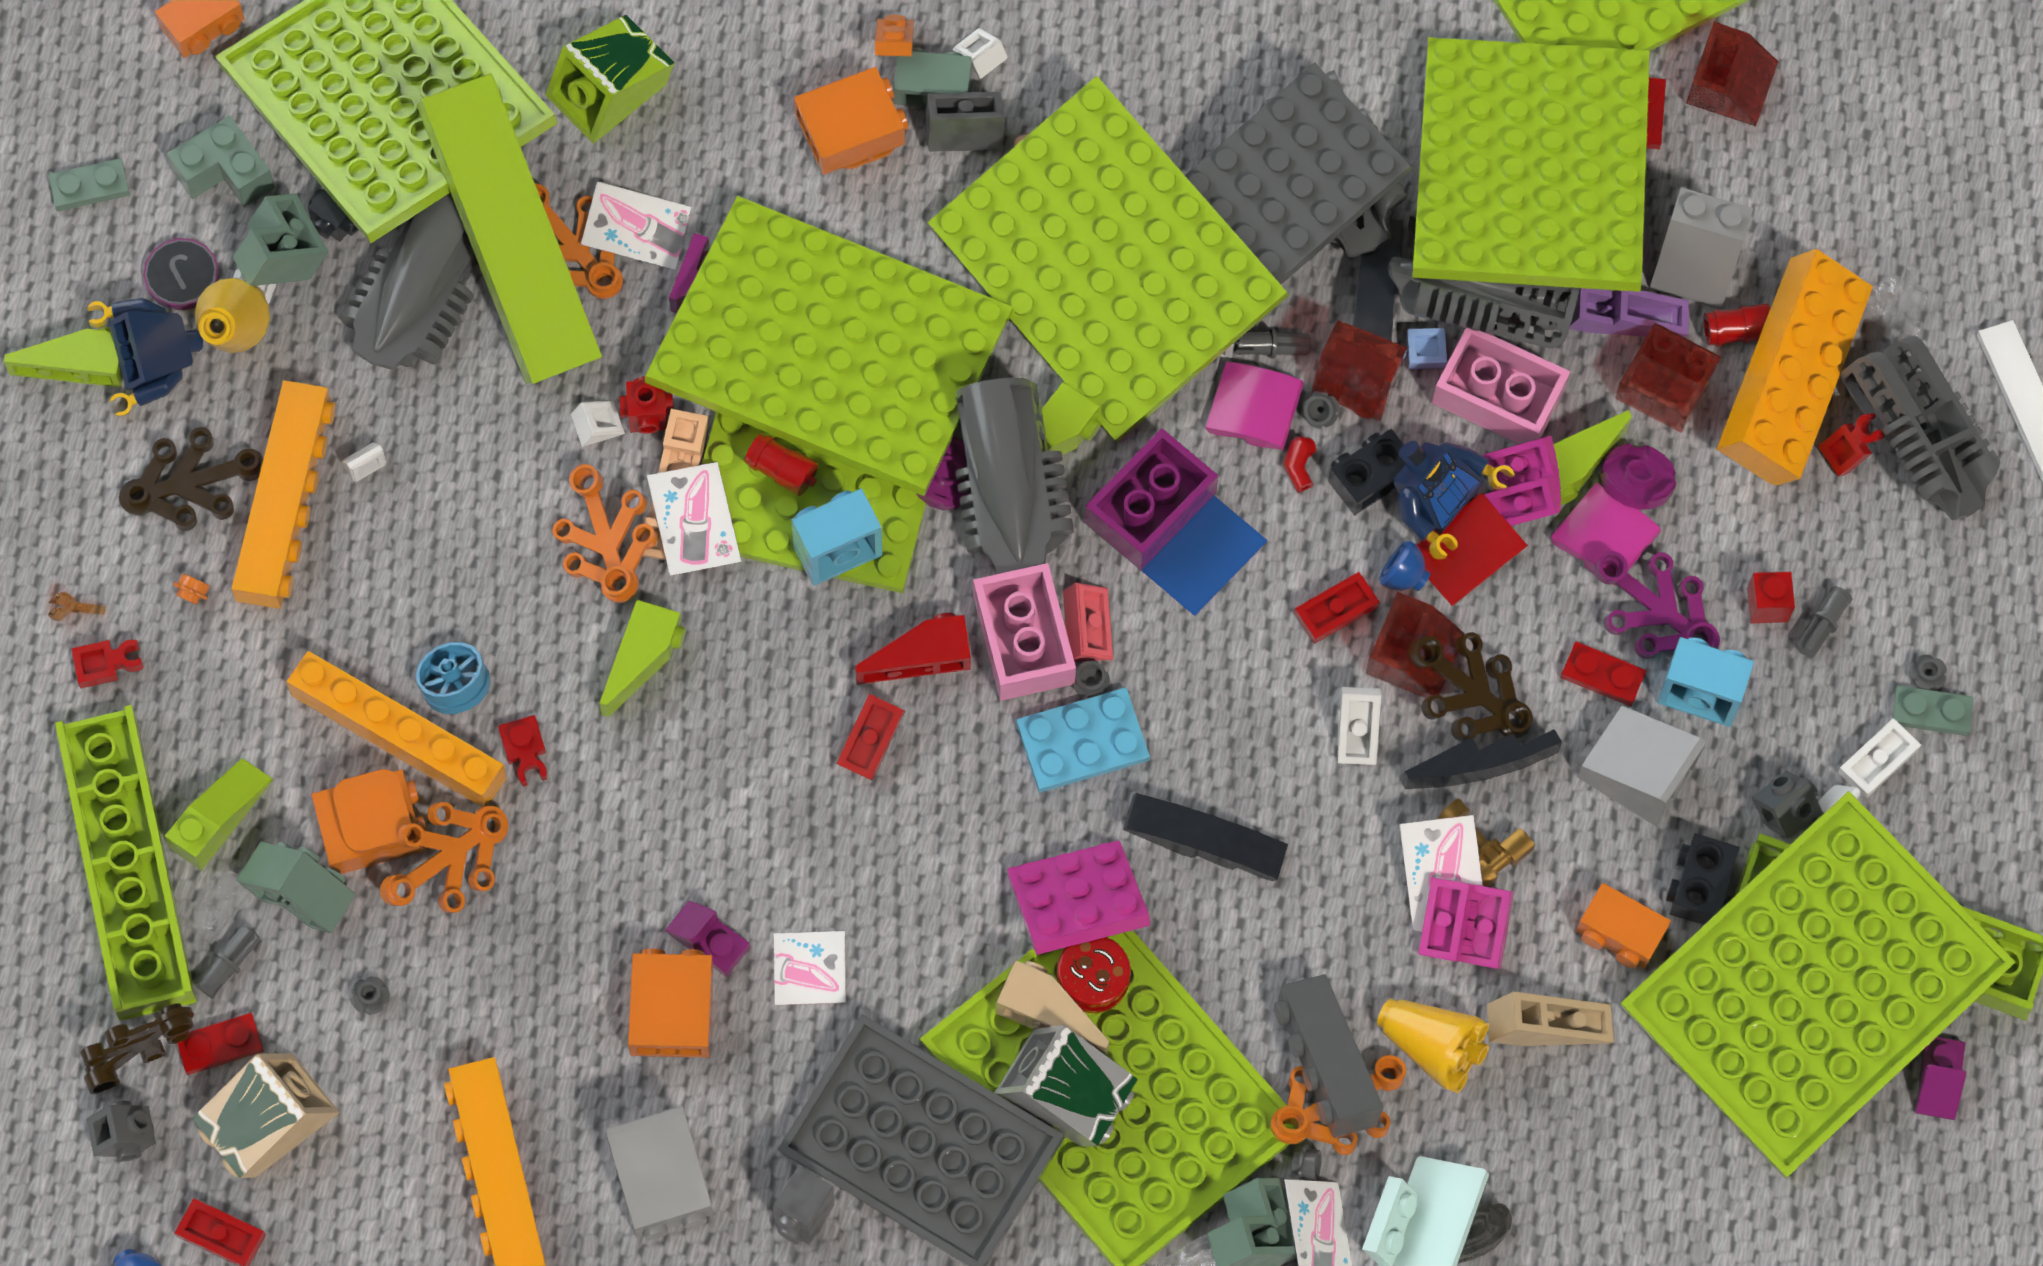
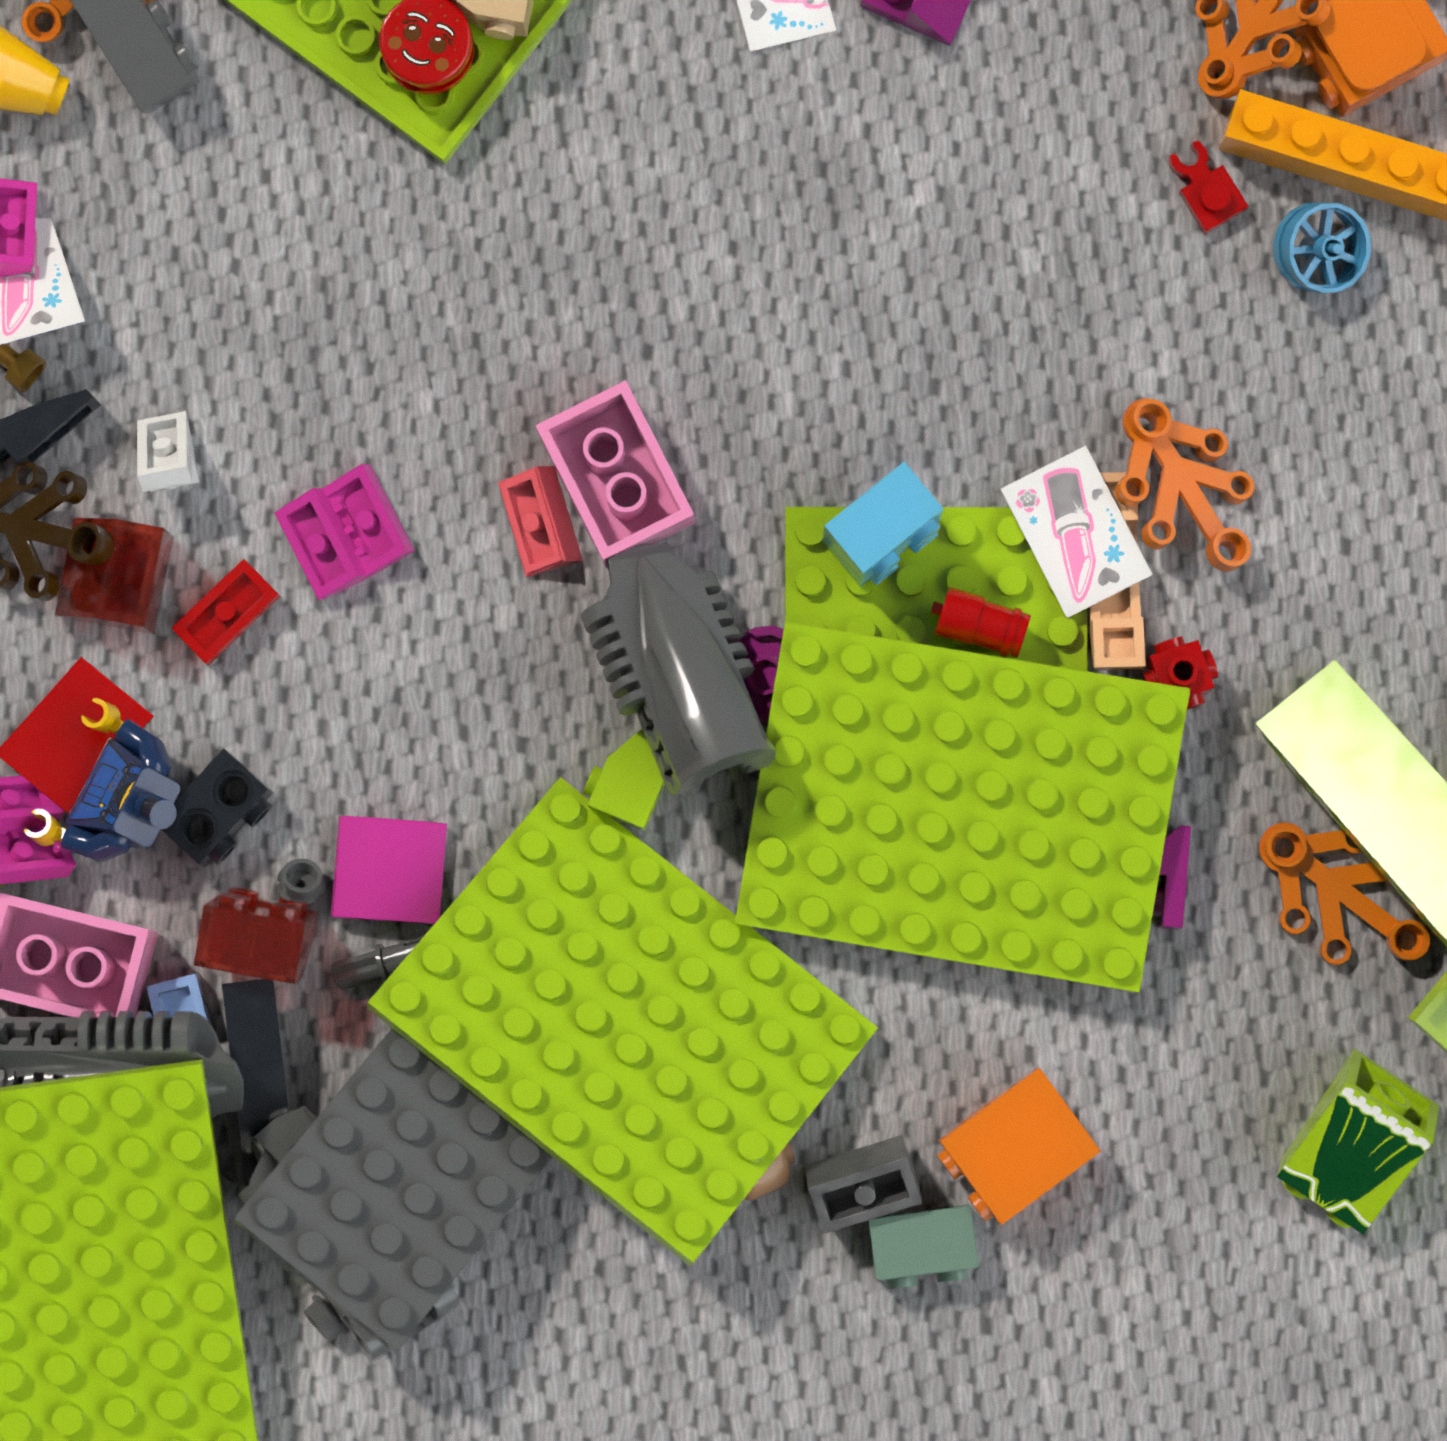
camera: 175 degrees right, 15 degrees up
(596, 421) = (1237, 647): white slope -> none
(636, 225) = (1264, 936): white sticker -> none
(643, 651) = (1092, 350): lime slope -> none
(870, 737) = (776, 295): red plate -> none
(894, 36) = (989, 1288): orange plate -> none
(927, 649) = (733, 429): red slope -> none
(985, 51) = (870, 1309): white slope -> none
(1078, 897) = (468, 139): dark pink plate -> none
(1082, 740) = (512, 363): medium azure plate -> none
(1094, 670) = (510, 435): dark grey plate -> none
(1151, 499) = (492, 694): magenta brick -> none
(1204, 555) = (412, 651): blue sticker -> none
(1205, 836) = (330, 264): black slope -> none
(1236, 646) = (344, 531): none -> dark pink slope
(1295, 460) = (319, 805): red arm -> none
(1405, 569) = (149, 682): blue brick -> none

